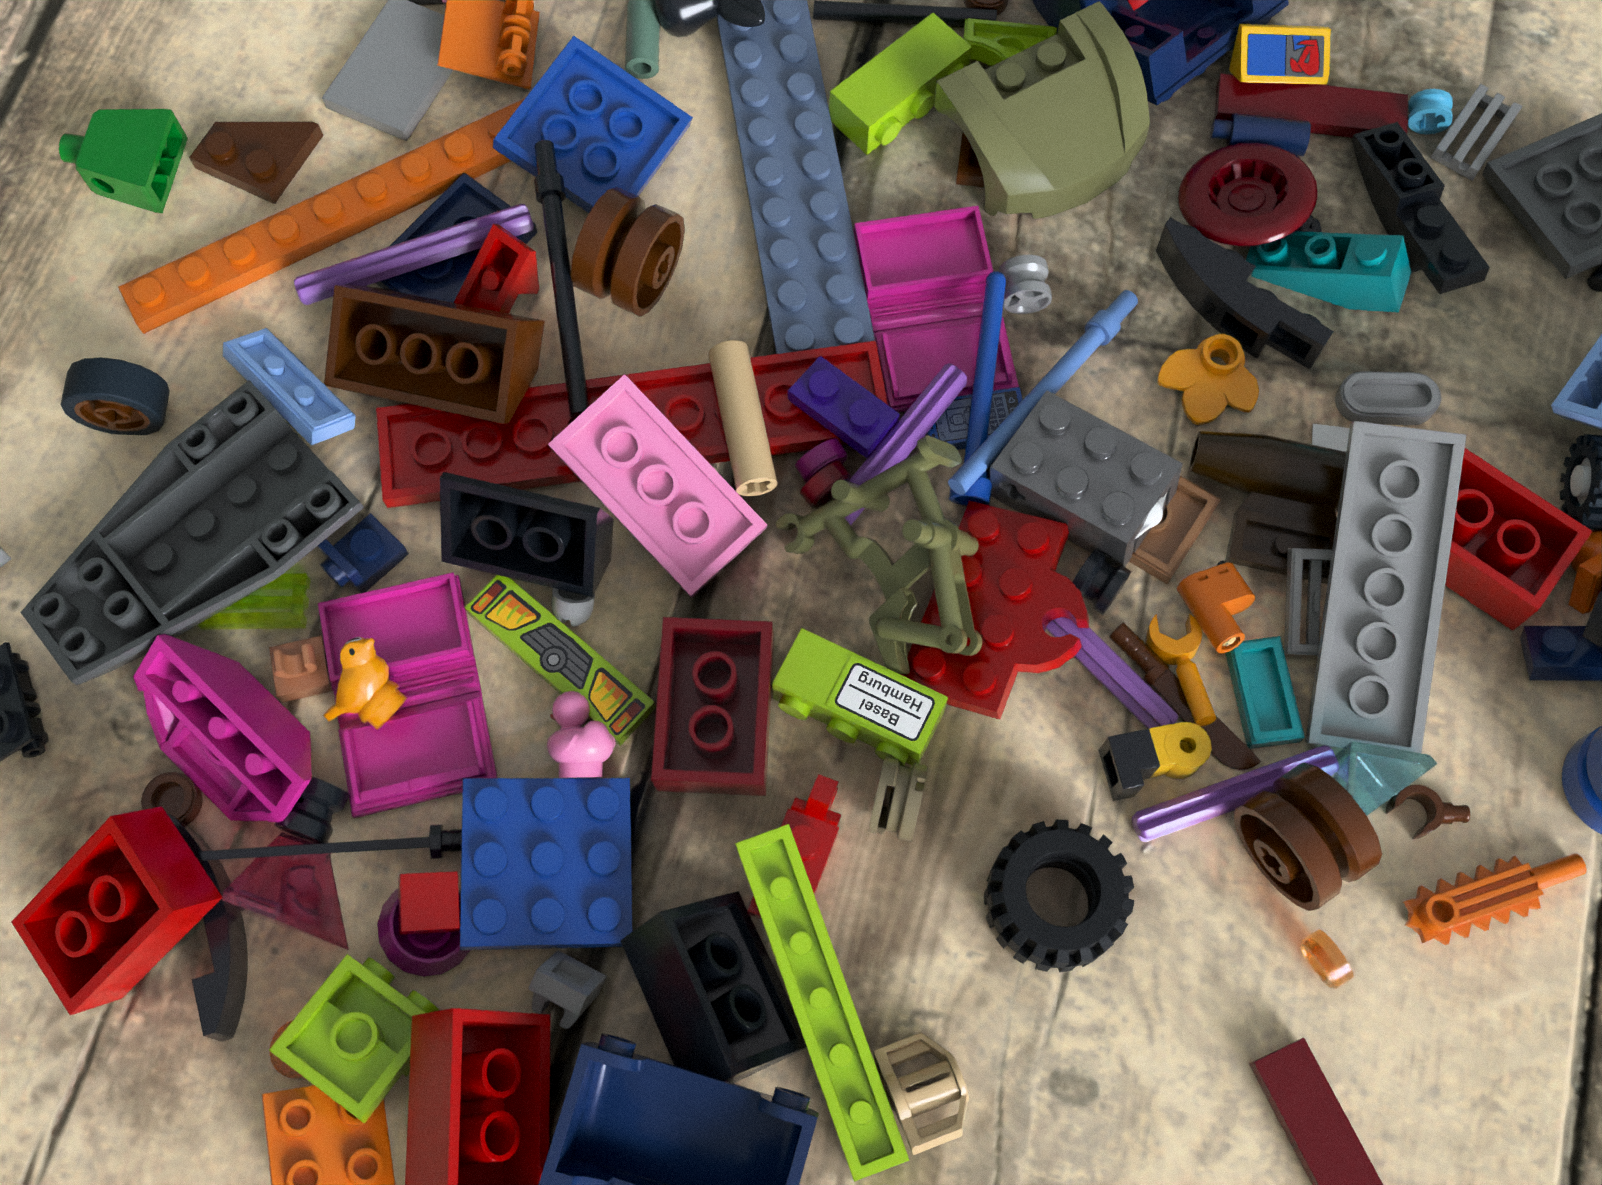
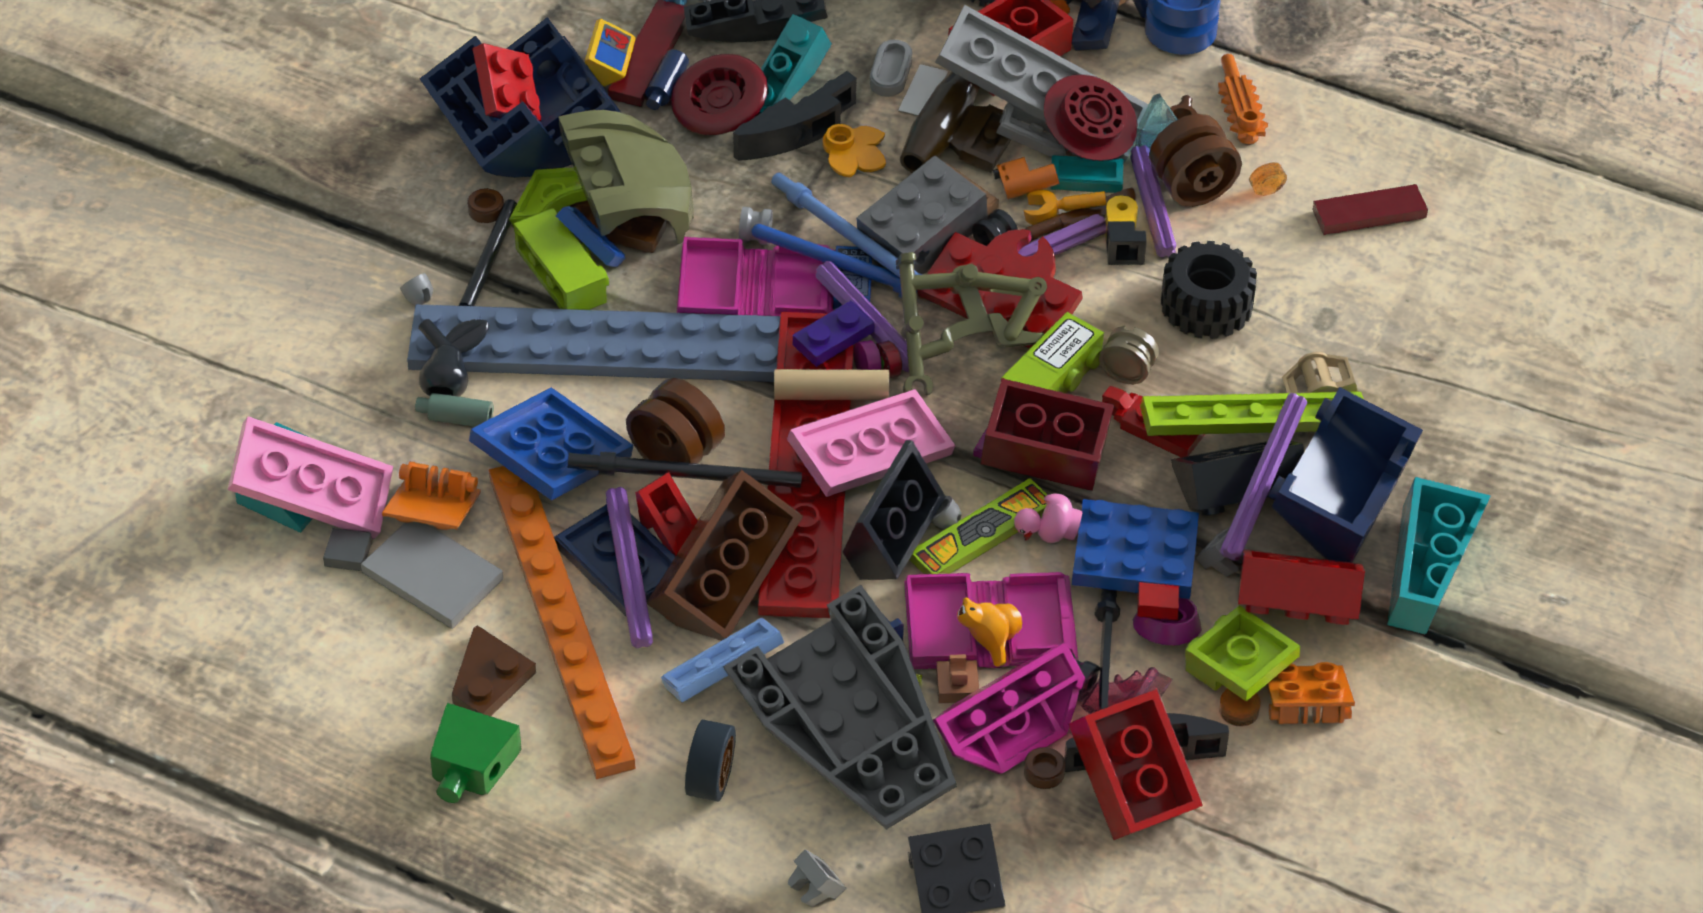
camera: 80 degrees left, 20 degrees down
(656, 1023) = (1263, 477): none -> medium lavender axle
(924, 123) = (591, 236): none -> blue tile
(1346, 669) = (1095, 110): none -> dark red wheel

